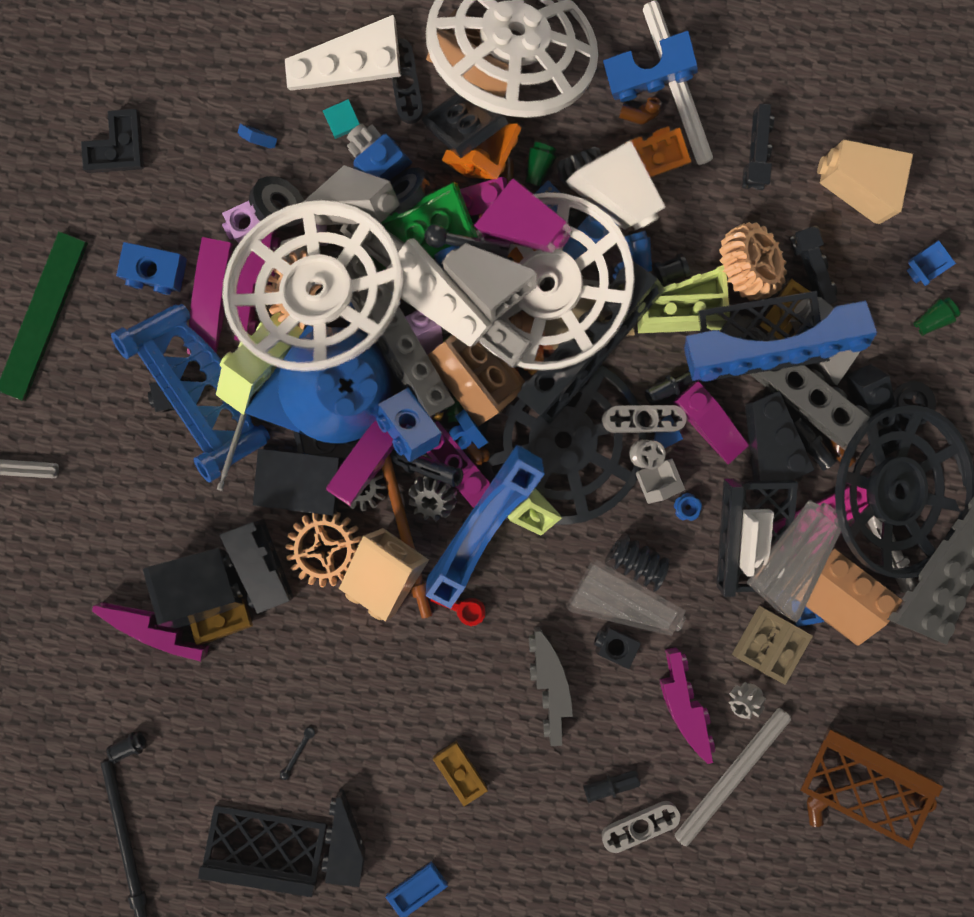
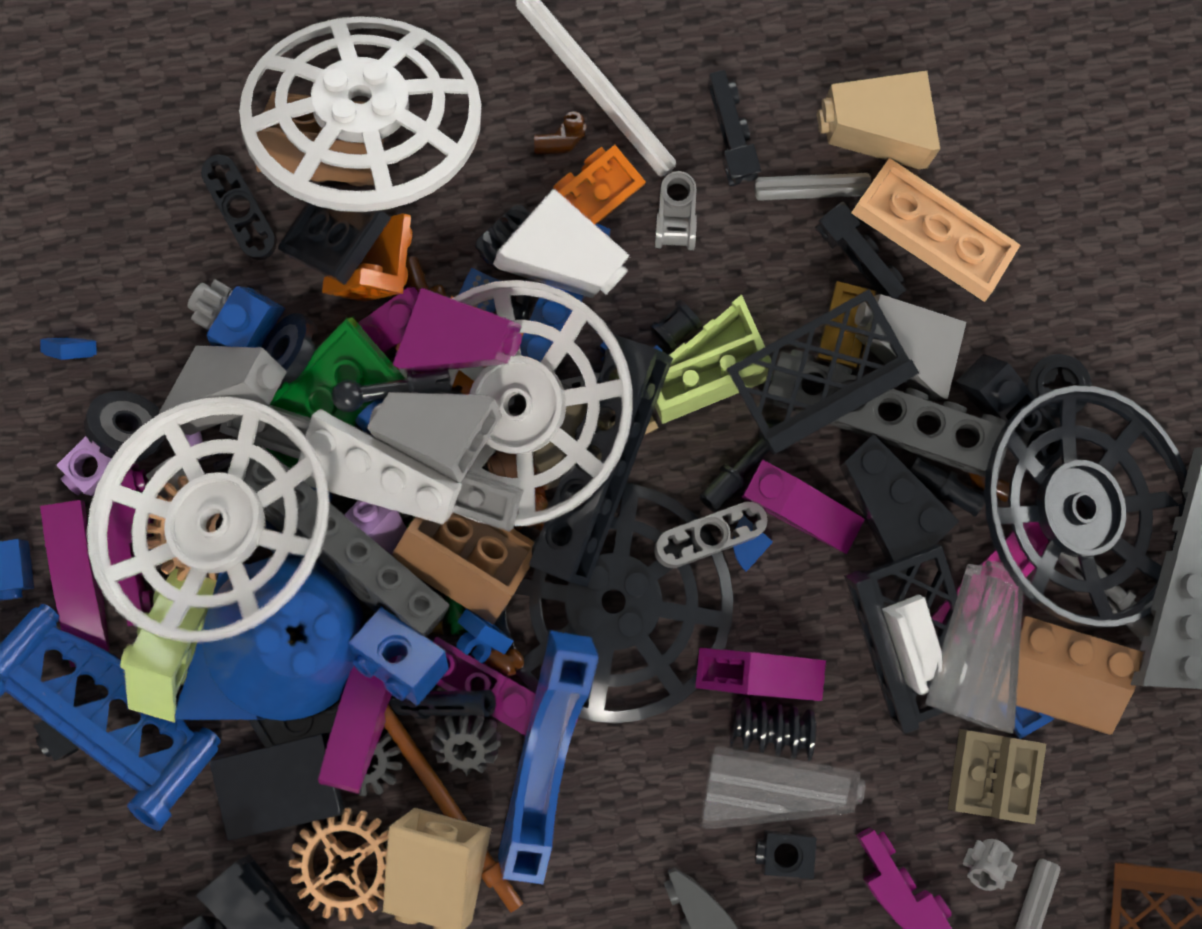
camera: 20 degrees left, 5 degrees down
(232, 450) = (175, 779): light grey piece -> none
(341, 118) = (171, 285): teal tile -> none
(351, 58) = (159, 202): white wing -> none
(469, 611) = (572, 879): red plate -> none
(535, 514) = (610, 713): yellowish green slope -> none
(539, 163) = (452, 249): dark green cone -> none
(640, 249) = (624, 316): blue cone -> none
(643, 523) = (760, 674): none -> magenta slope
(654, 454) = (742, 578): light grey wheel -> none
(660, 482) = (762, 609): light grey panel -> none
(675, 64) = (581, 62): blue arch -> none
(695, 507) = (823, 636): blue plate -> none
(699, 197) = (676, 219): none -> light grey piece
(719, 354) = (772, 417): blue arch -> none
(753, 261) = (776, 278): light nougat gear -> none
(798, 208) = (812, 186): none -> light grey axle
(872, 268) = (936, 229): none -> light nougat plate
(930, 263) = (1010, 196): blue bracket -> none
(937, 316) = (1047, 261): dark green cone -> none

